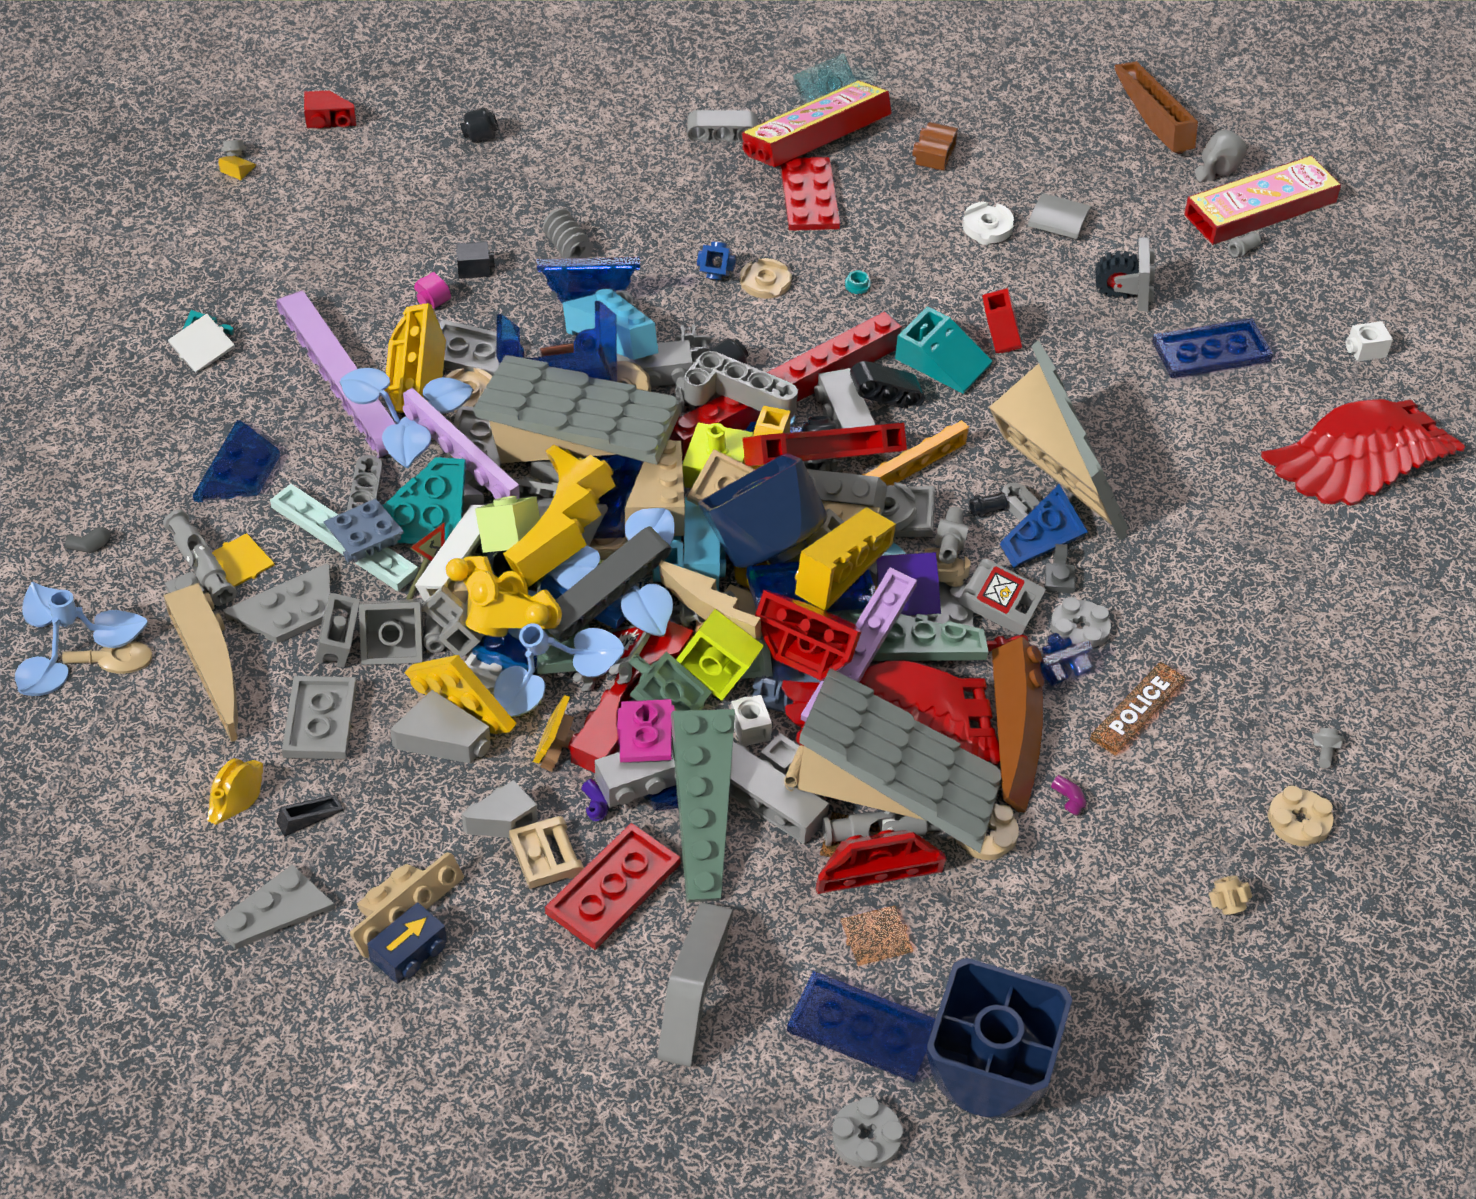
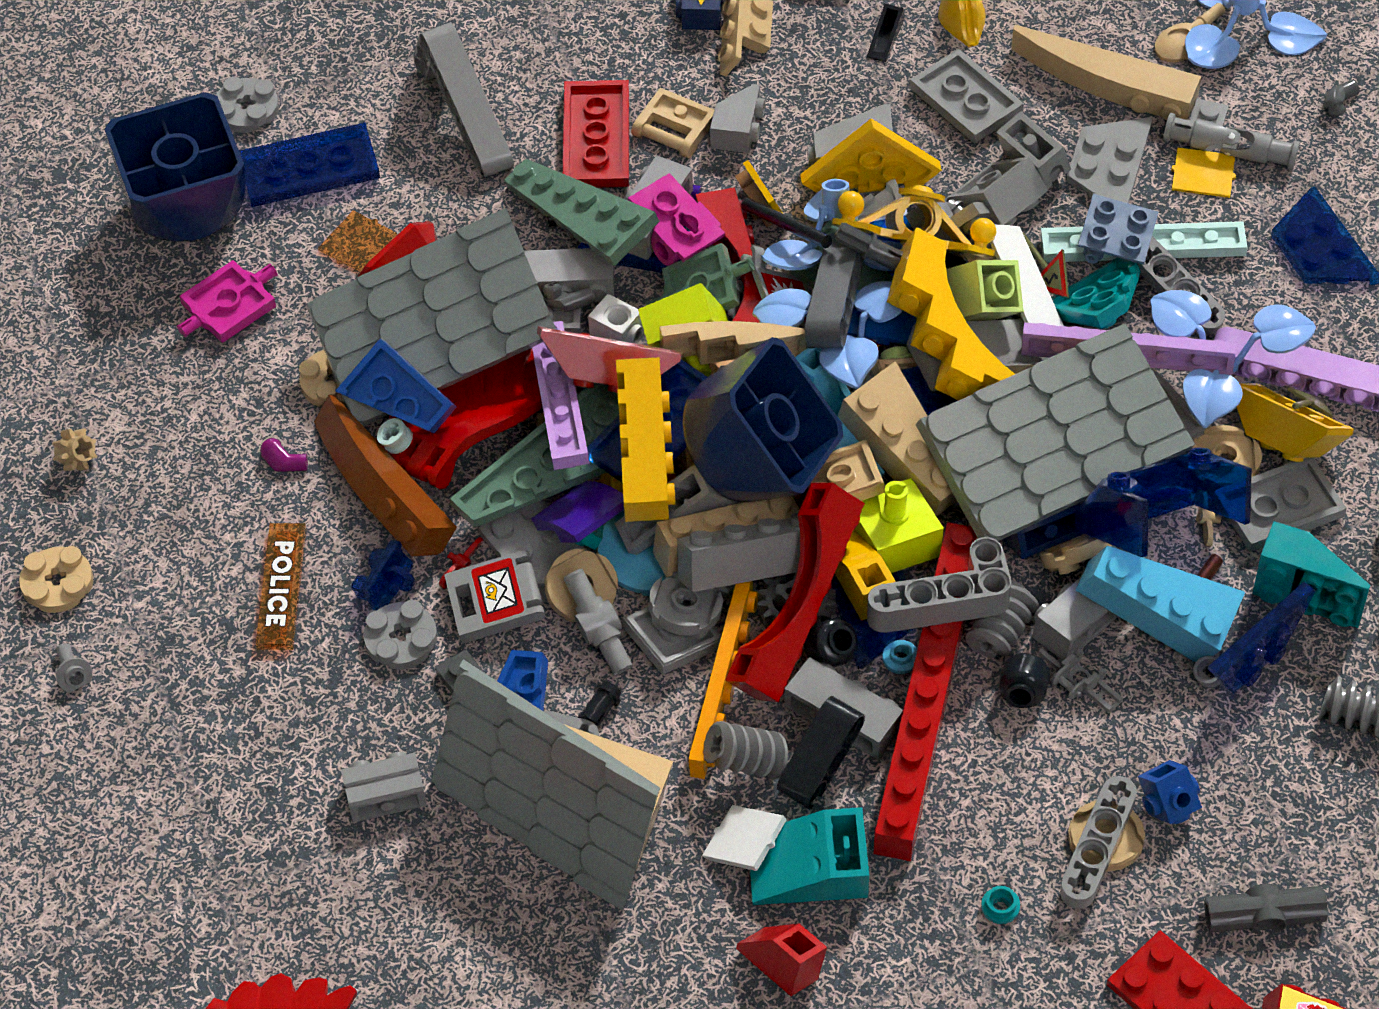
camera: 145 degrees right, 5 degrees up
(388, 363) = (1310, 400): none -> olive piece
(521, 294) = (1299, 557): none -> teal slope
(555, 584) = (868, 246): none -> dark grey axle
(578, 671) = (787, 223): none -> black bar
(726, 199) = (1265, 908): none -> dark grey piece
(750, 275) = (1101, 842): none -> light grey beam
(773, 749) = (567, 301): none -> dark grey arm
(930, 408) = (746, 749): none -> light grey piece
(962, 741) = (396, 388): none -> blue wing
(968, 385) = (744, 837): none -> white piece
(987, 726) = (394, 436): none -> light aqua bush
(1024, 944) = (227, 301): none -> dark pink plate
(1164, 539) = (383, 786): none -> light grey brick

